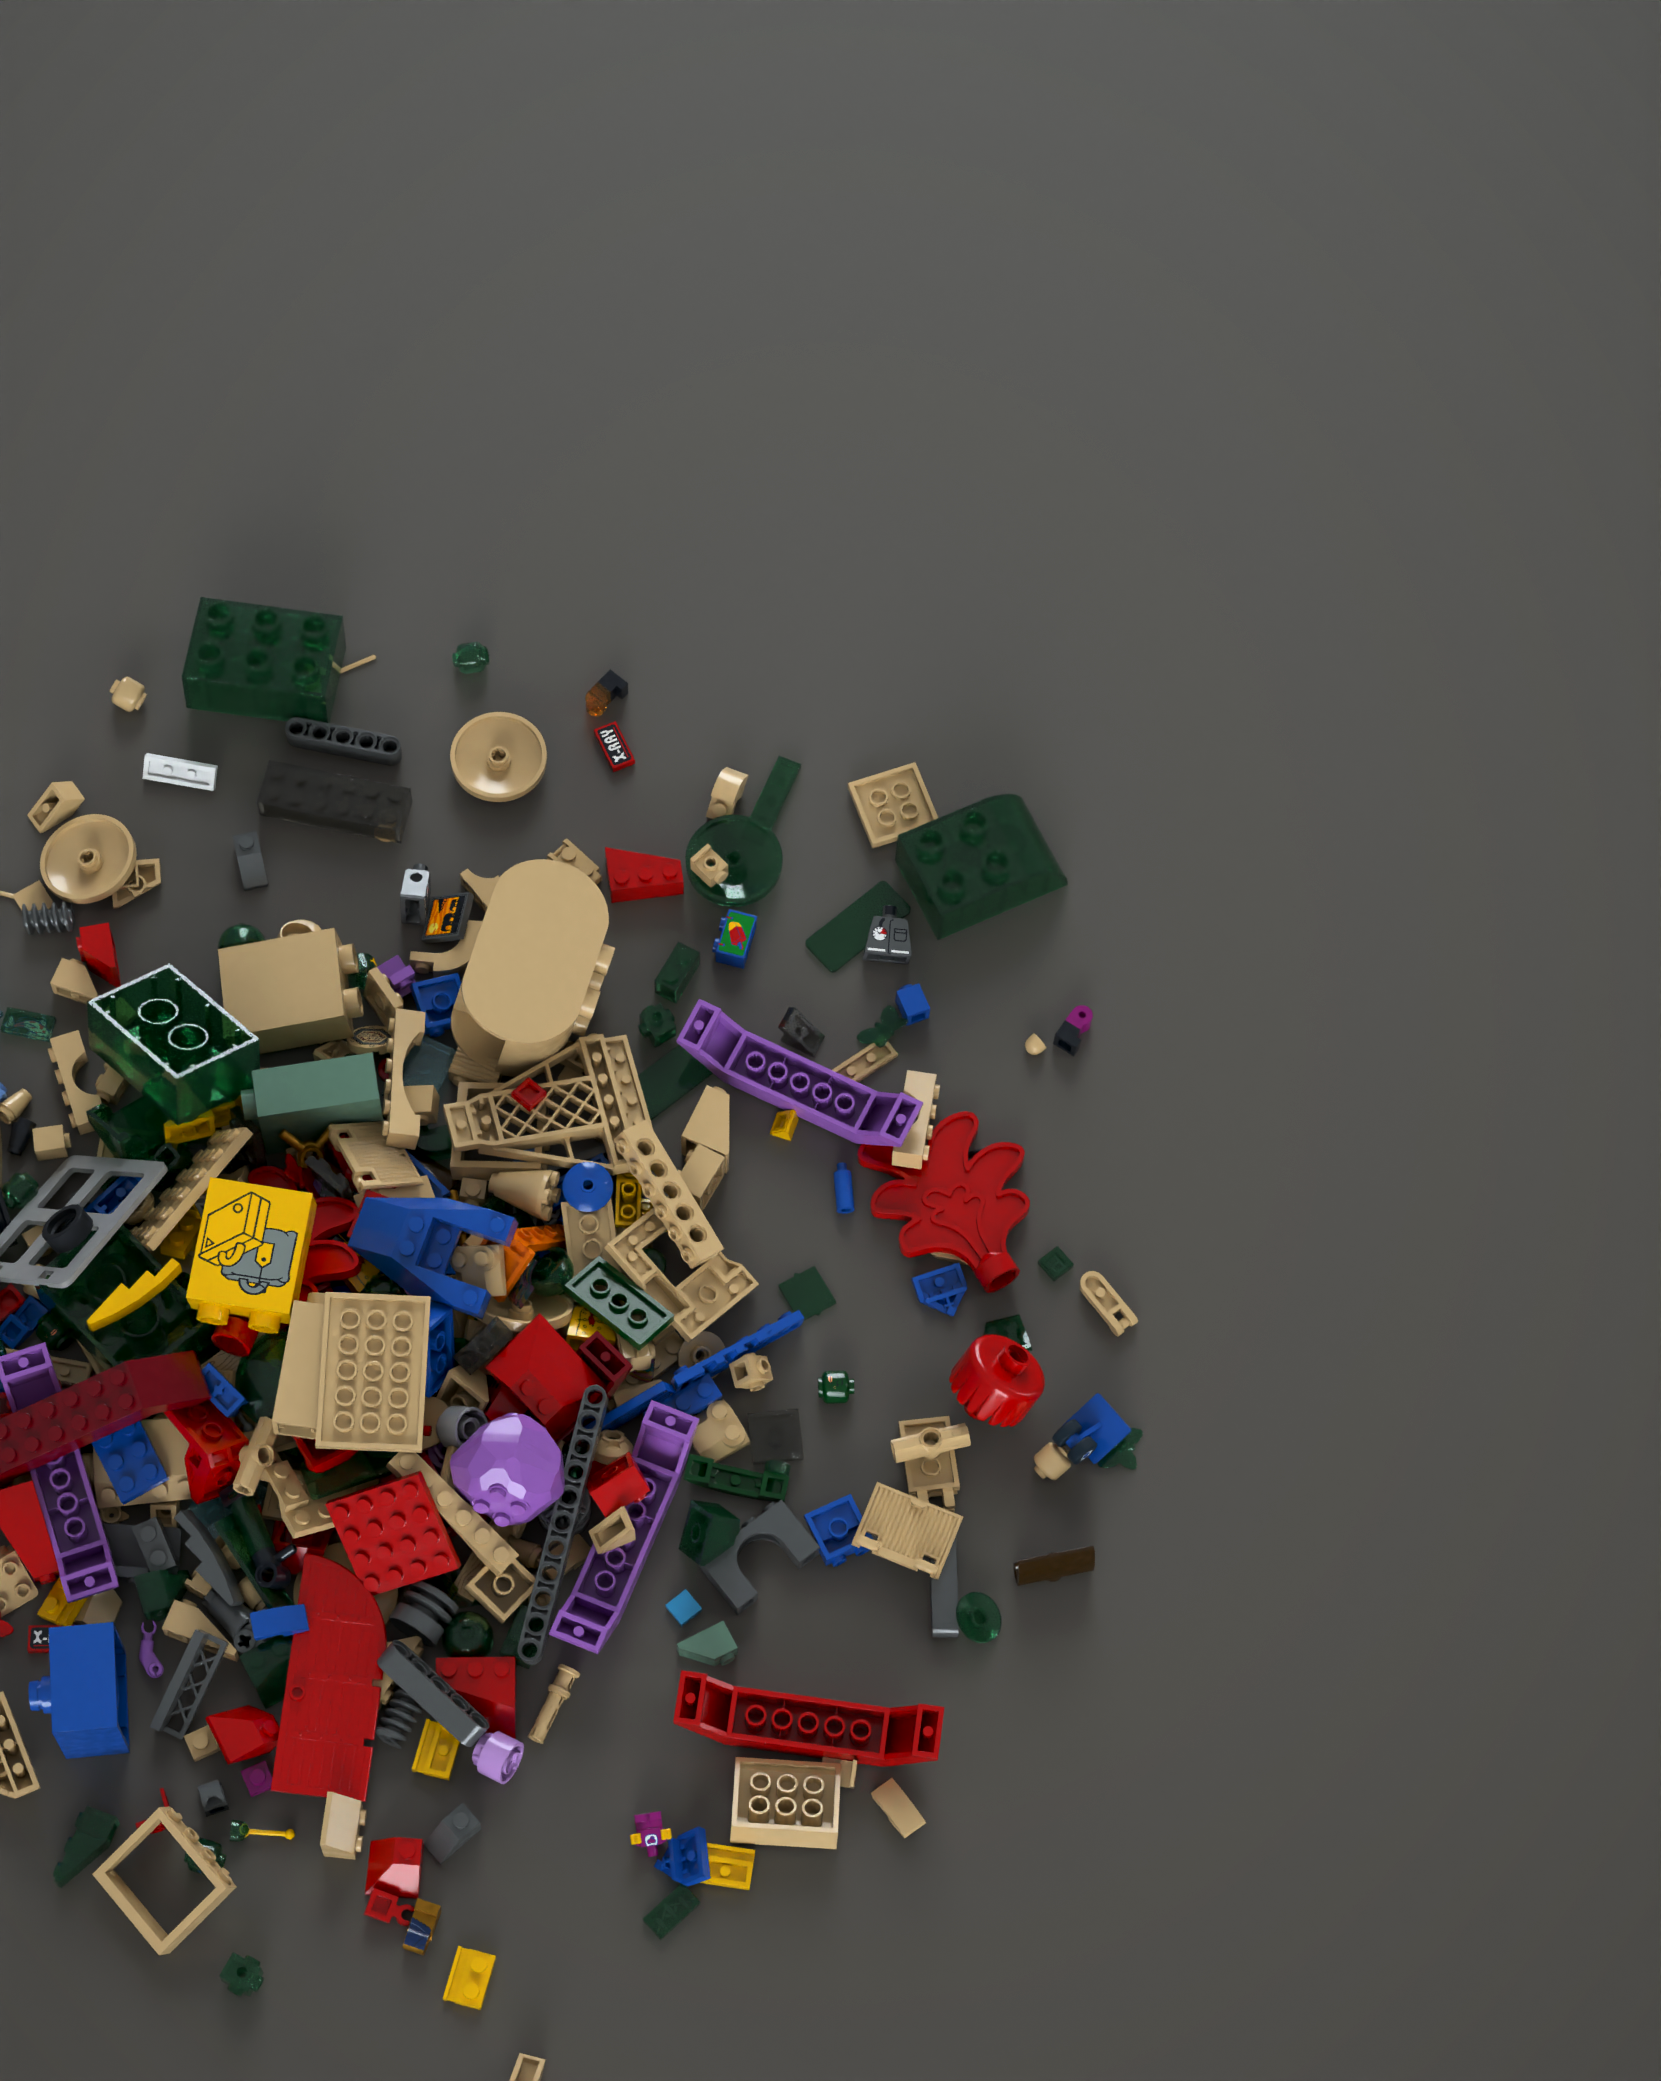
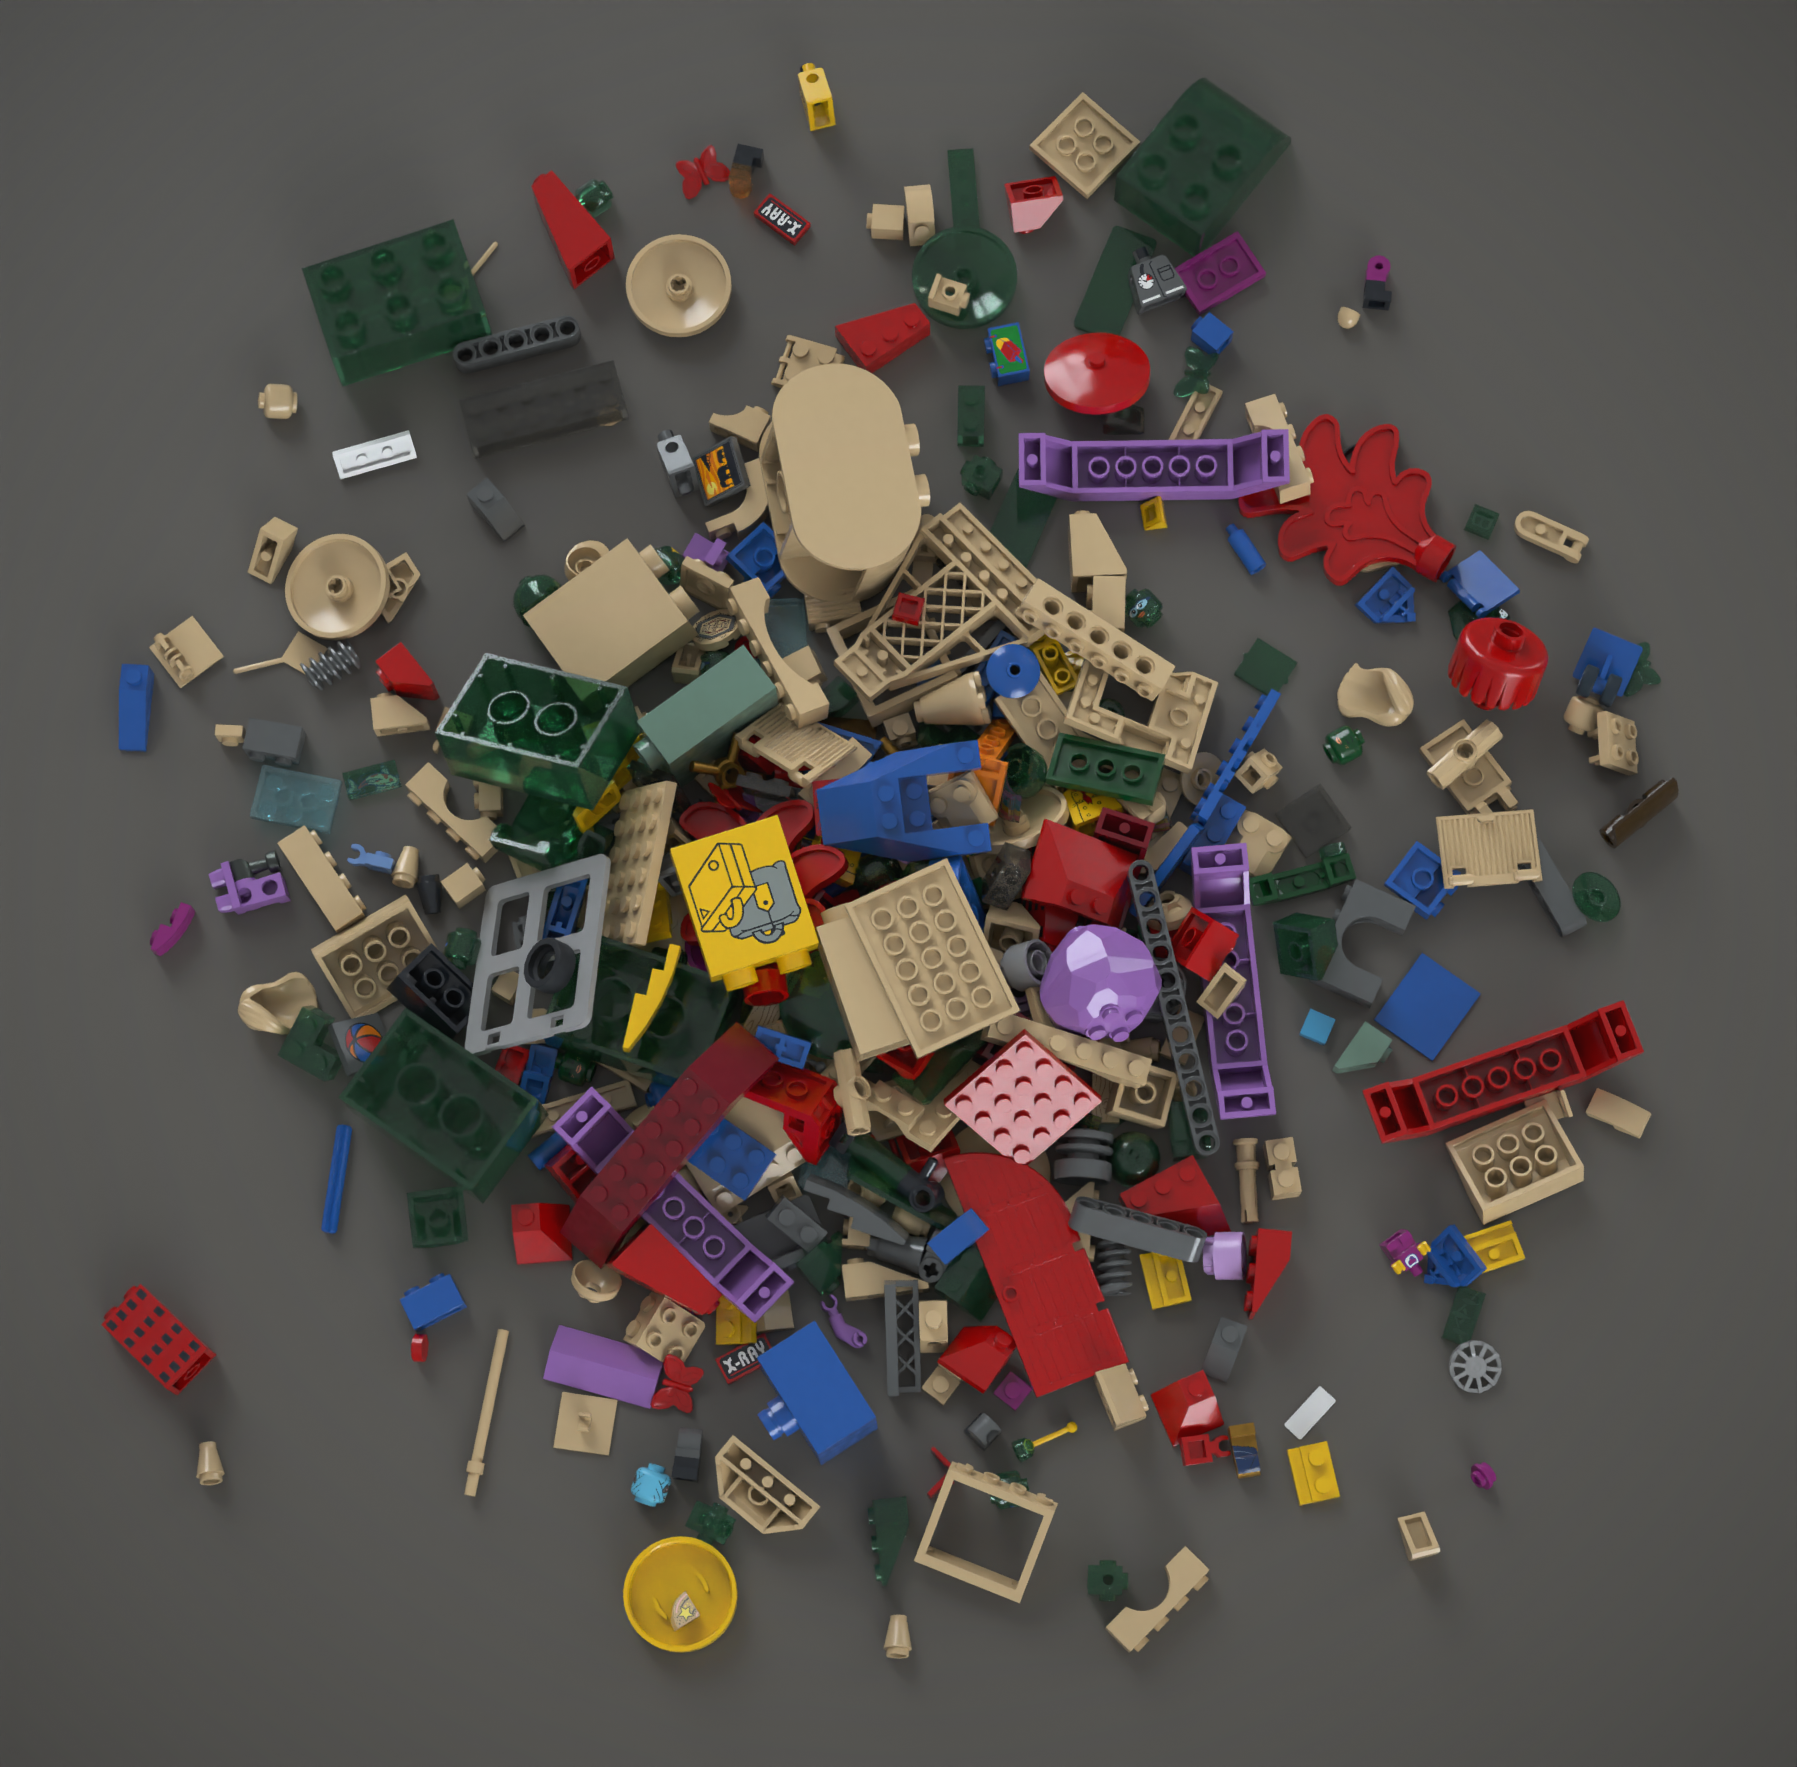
camera: 20 degrees left, 10 degrees up
(43, 1934) = (897, 1639): none -> tan cone
(221, 1687) = (933, 1325): none -> tan torso
(244, 2026) = (1183, 1574): none -> tan arch
(436, 679) = (573, 232): none -> red slope
(496, 1926) = (1310, 1412): none -> white sticker
(524, 1783) = (1270, 1256): none -> red slope
(569, 676) = (698, 171): none -> red piece
(582, 1717) = (1285, 1179): none -> tan piece
(611, 2053) = (1483, 1475): none -> magenta plate
(656, 1958) = (1475, 1366): none -> light grey wheel
(695, 654) = (813, 90): none -> yellow torso
(696, 788) = (886, 222): none -> tan brick
(730, 1193) = (1143, 608): none -> clear green head
(786, 1638) = (1427, 1007): none -> blue piece
(798, 987) = (1097, 373): none -> red dish
(823, 828) = (1032, 202): none -> slope
(883, 1359) = (1375, 695): none -> tan piece
(947, 958) = (1219, 273): none -> magenta plate
(1023, 1312) = (1479, 584): none -> piece
(1065, 1498) = (1616, 743): none -> tan plate

